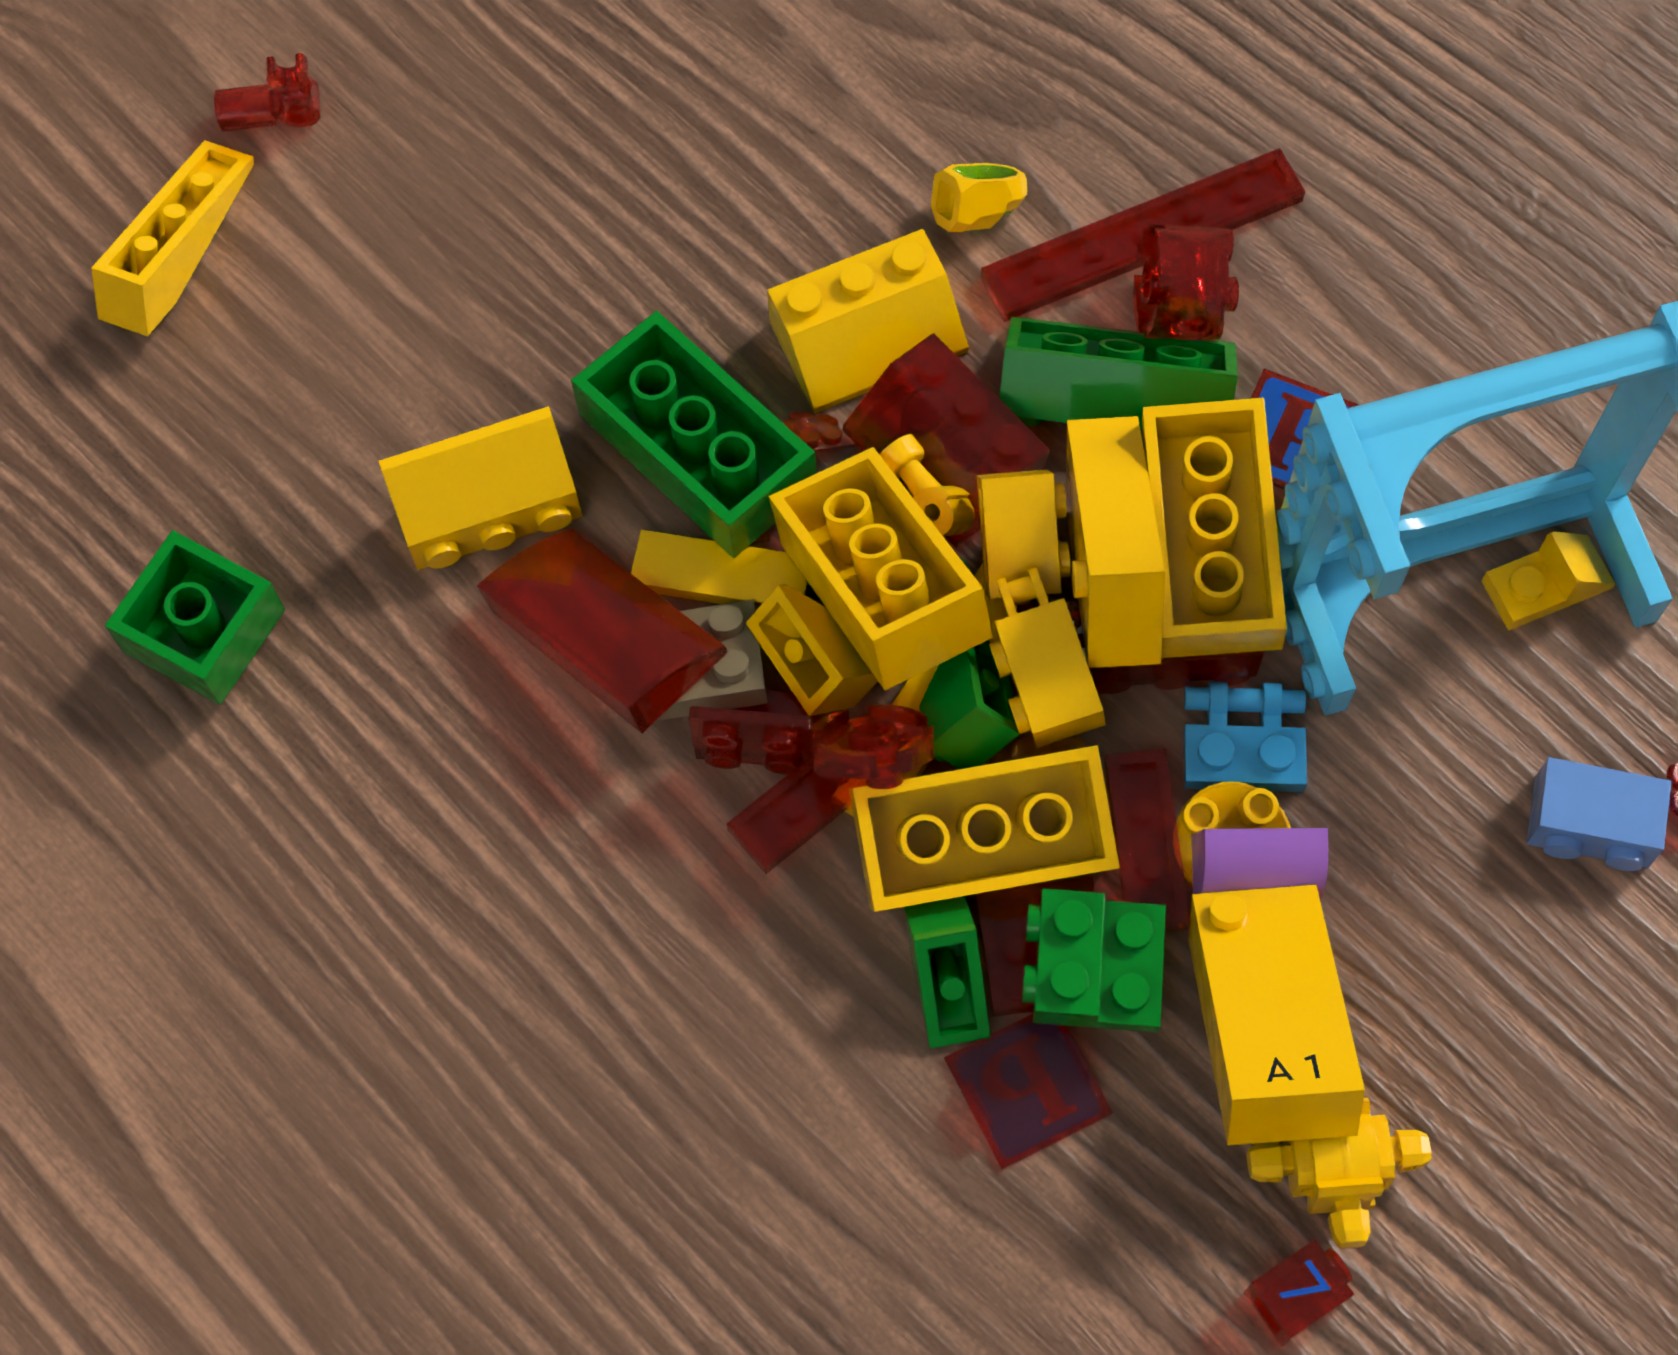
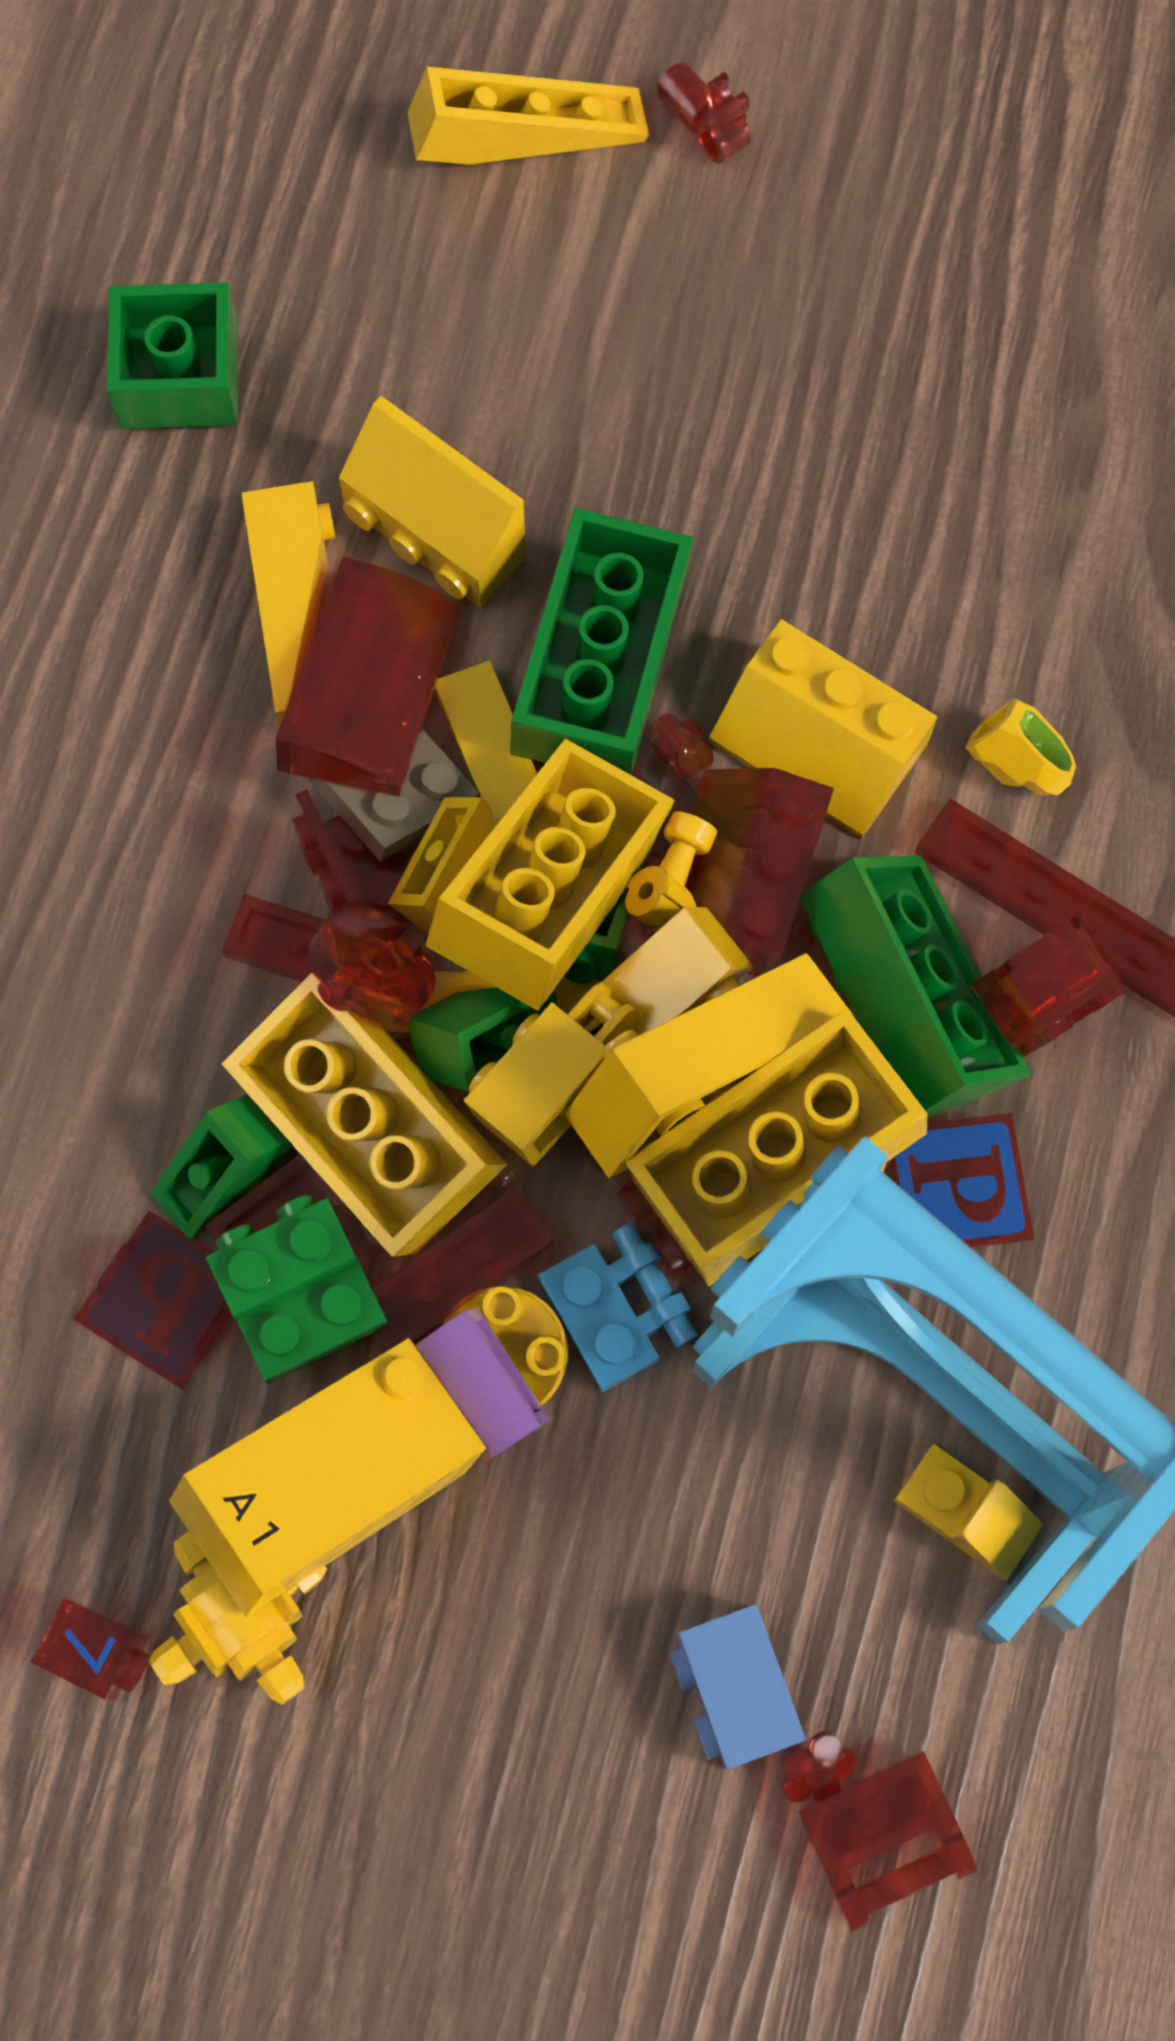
camera: 55 degrees right, 5 degrees up
(445, 634) = (289, 572): none -> yellow slope

